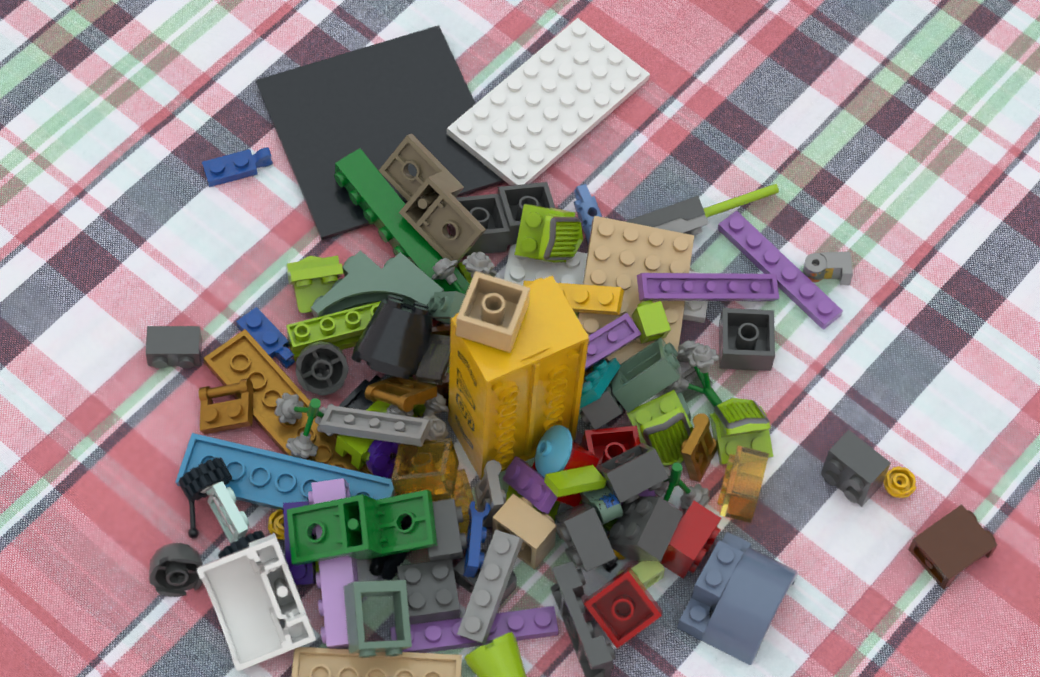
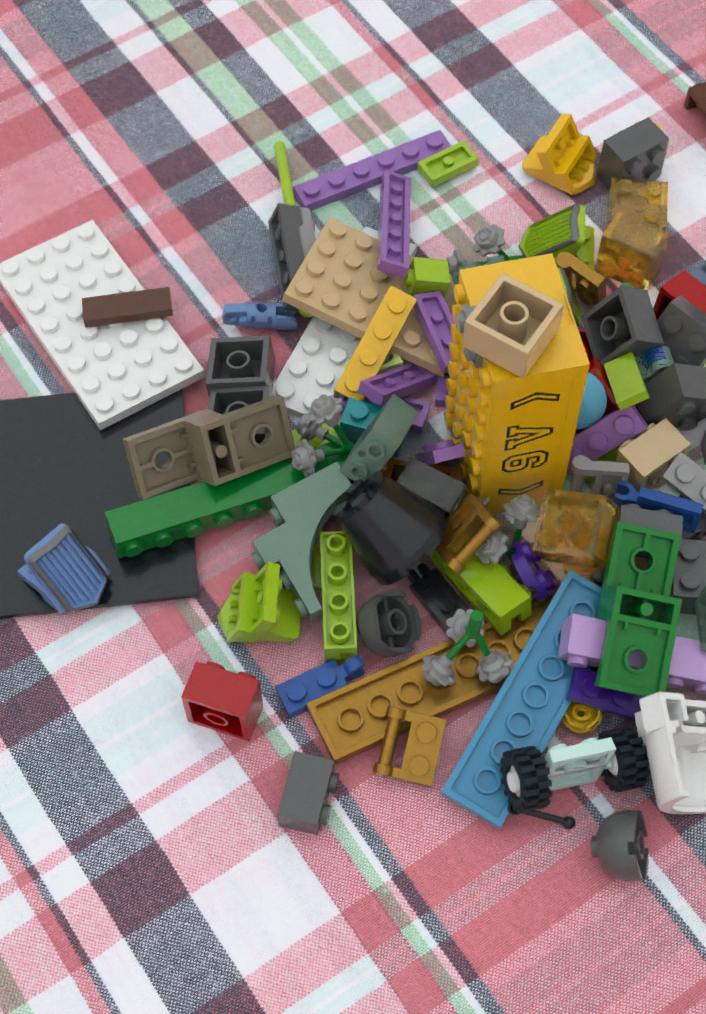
camera: 70 degrees left, 0 degrees up
(230, 270) = (223, 700): none -> red brick
(235, 166) = (60, 674): blue plate -> none
(310, 139) = (65, 571): none -> medium blue piece
(375, 425) = (509, 564): light grey plate -> none
(548, 234) = (288, 349): lime piece -> none
(560, 117) = (127, 307): none -> reddish brown tile
(746, 339) = (457, 210): dark grey brick -> none
(799, 486) = (640, 200): none -> clear yellow brick
(805, 324) = (448, 163): none -> lime plate
(829, 266) = (387, 120): light grey leg -> none
(836, 411) = (563, 158): none -> yellow piece

